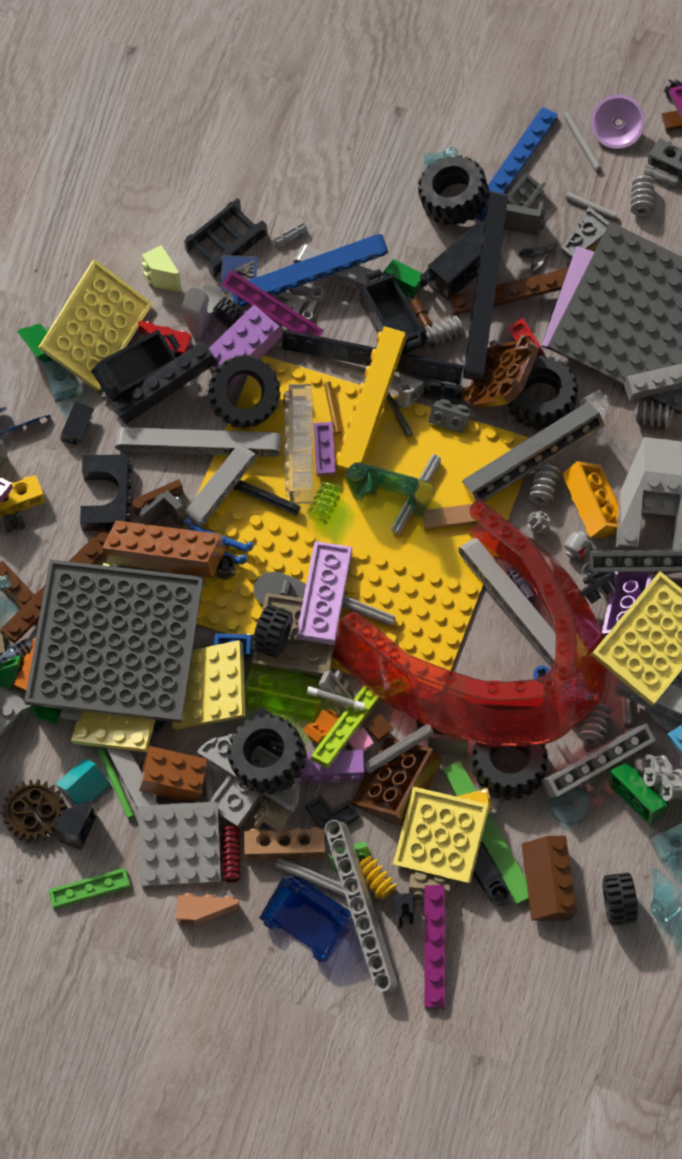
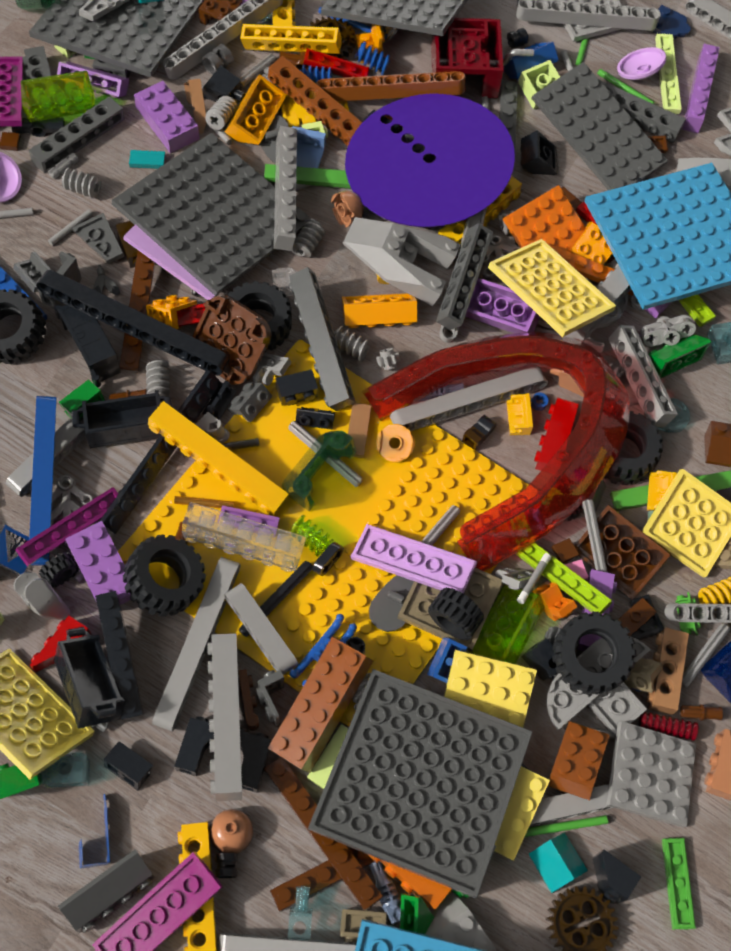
camera: 85 degrees left, 0 degrees up
(43, 518) = (231, 831): none -> nougat cylinder
(133, 478) = (225, 719): none -> light grey brick
(253, 882) = (701, 712): none -> reddish brown axle
(306, 523) = (328, 558): none -> black beam
(329, 803) = (637, 616): none -> reddish brown plate
(448, 557) = (406, 442): none -> light orange tile
(450, 467) = (319, 419): none -> black hinge
(475, 448) = (297, 387): none -> black brick
(485, 625) = (479, 432): none -> leg
(491, 420) = (270, 366): none -> light grey hinge
(518, 659) = (520, 414): none -> yellow hinge
(523, 312) = (166, 309): none -> light orange bracket
(578, 545) = (420, 334): light grey head -> none
(605, 582) = (476, 324): black hips -> none

